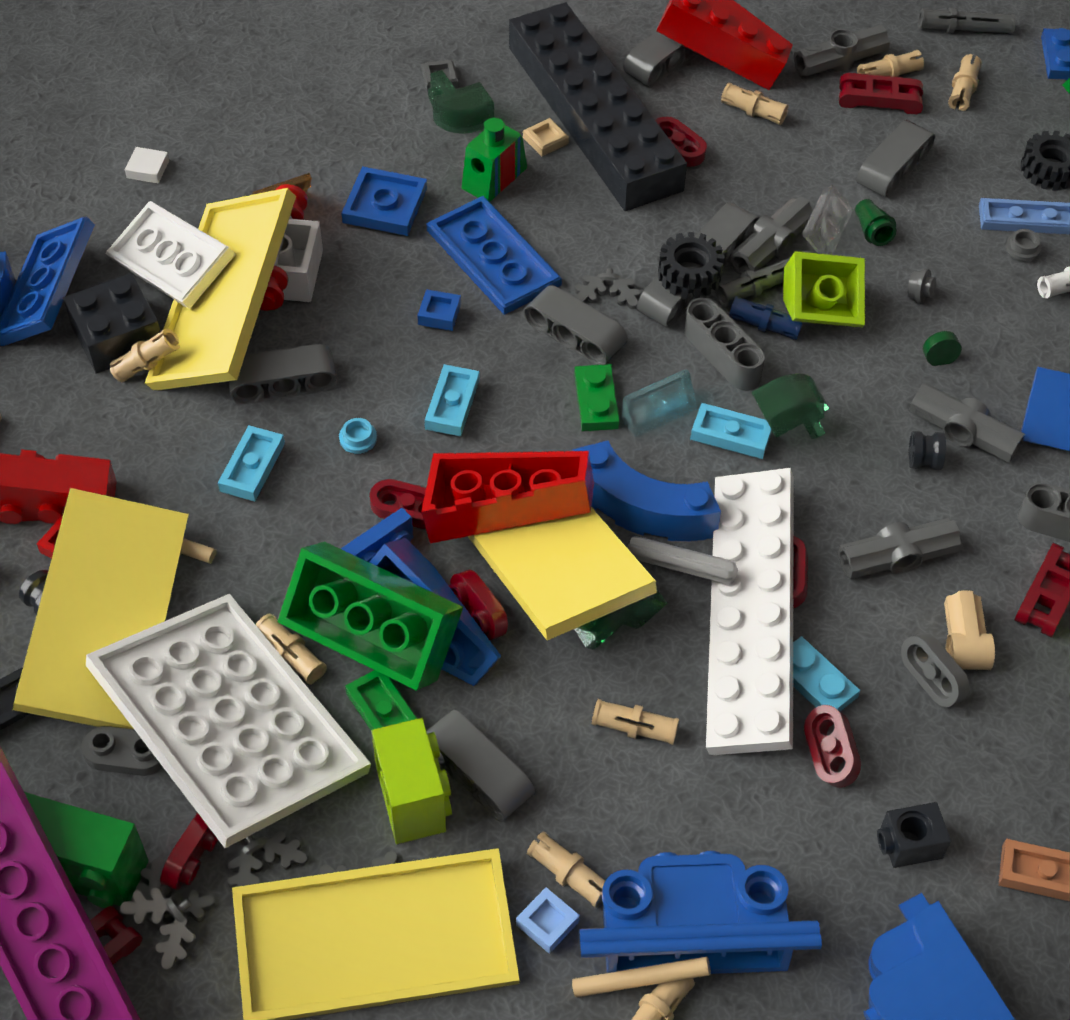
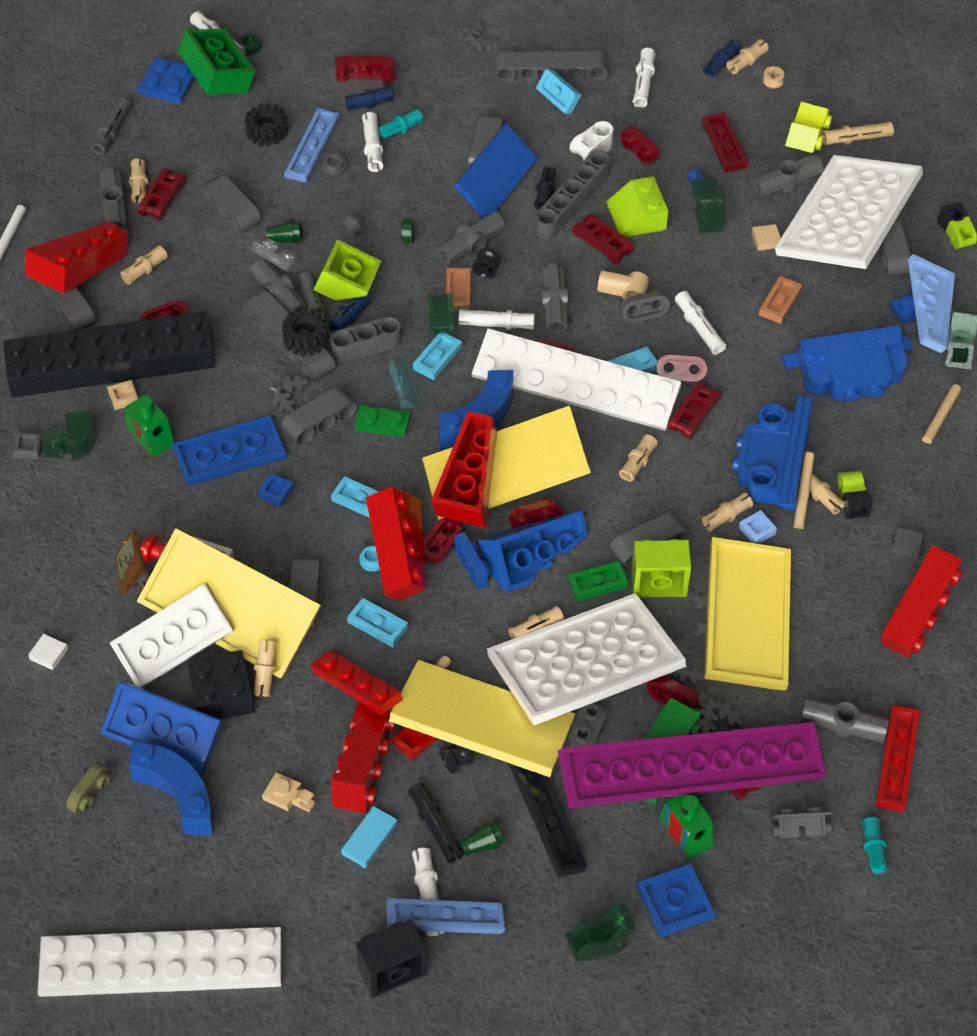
camera: 75 degrees left, 0 degrees up
(132, 452) = (356, 682): none -> red plate
(370, 615) = (537, 565): green brick -> none
(375, 447) = (398, 541): none -> red wedge
(384, 201) = (154, 502): blue plate -> none
(683, 560) = (537, 400): light grey axle -> none
(760, 783) = (694, 409): none -> dark red plate
(832, 498) = (497, 319): none -> white pin
(869, 432) = (459, 284): none -> nougat tile
(925, 823) = (746, 348): black brick -> none
(965, 82) = (171, 146): tan pin -> none
(966, 736) = (694, 314): none -> white pin

